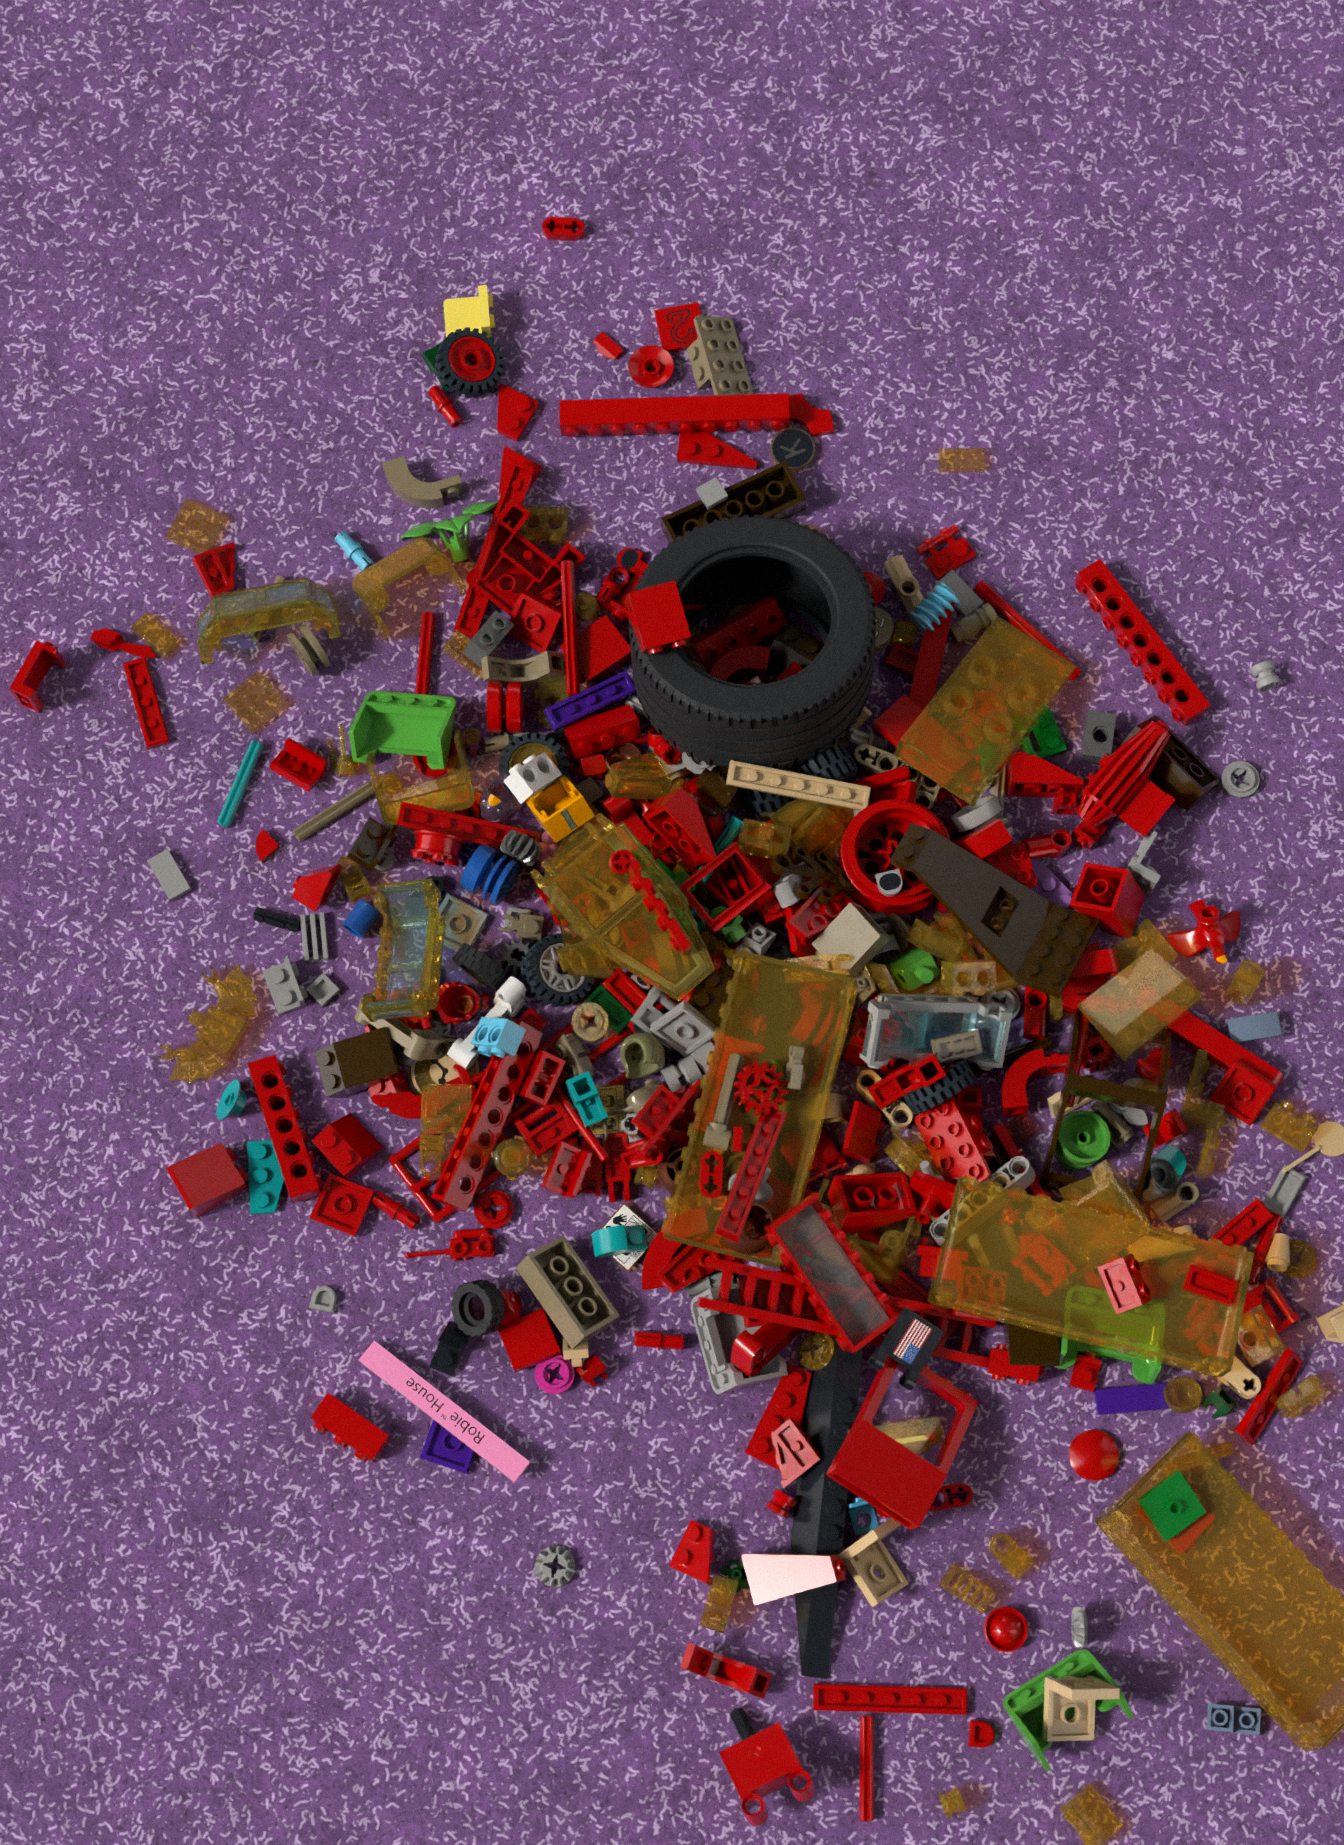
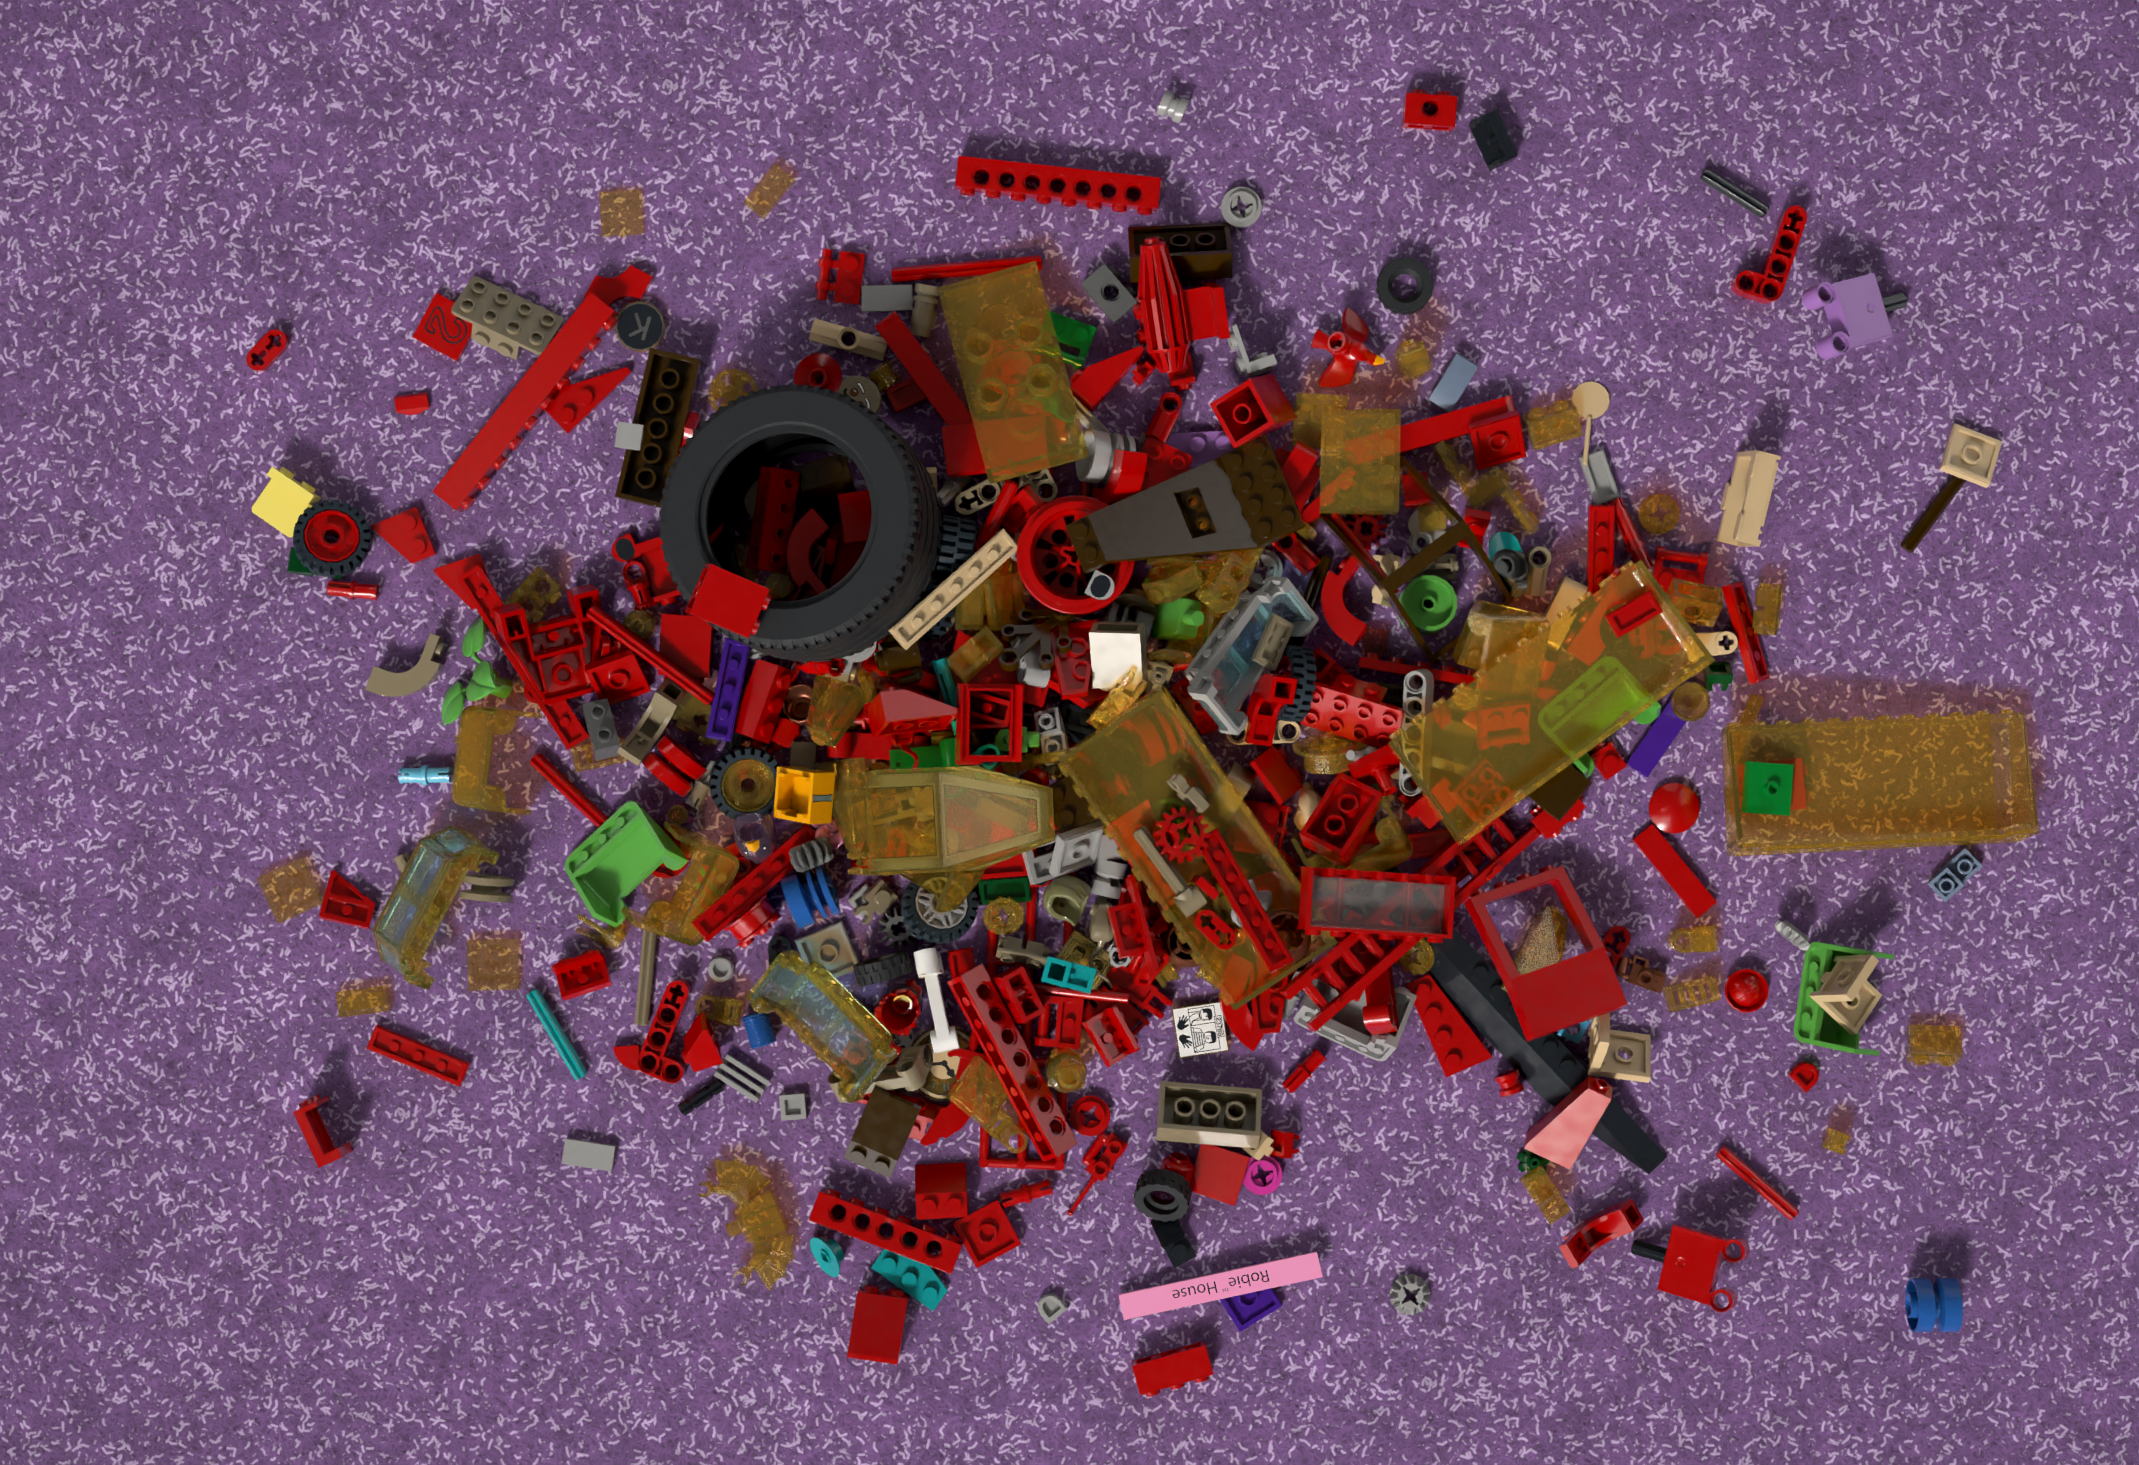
camera: 55 degrees left, 15 degrees up
(114, 641) = (340, 1040): red piece -> none
(284, 987) = (765, 1135): light grey bracket -> none
(309, 856) = (660, 1024): none -> red beam
(371, 844) = (704, 970): dark brown bracket -> none
(497, 1037) = (959, 1006): medium azure brick -> none
(532, 776) = (764, 798): white brick -> none
(618, 1240) = (1201, 1039): teal brick -> none
(625, 858) = (906, 793): red wheel -> none
(645, 886) = (957, 795): red wing -> none
(649, 357) = (450, 384): red dish -> none
(695, 1552) = (1491, 1180): red wing -> none
(793, 1451) = (1480, 1041): wing -> none
(859, 378) = (621, 213): none -> clear yellow piece
(889, 1699) = (1722, 1121): red tile -> none
(908, 1343) = (1479, 887): black flag -> none
(933, 607) = (891, 339): medium azure piece -> none
(947, 1536) = (1641, 975): none -> copper piece
(1047, 1496) = (1674, 870): none -> red tile
(1125, 1283) = (1577, 680): bracket -> none
(1279, 1254) = (1646, 527): tan cone -> none
(1297, 920) = (1418, 272): none -> black tyre

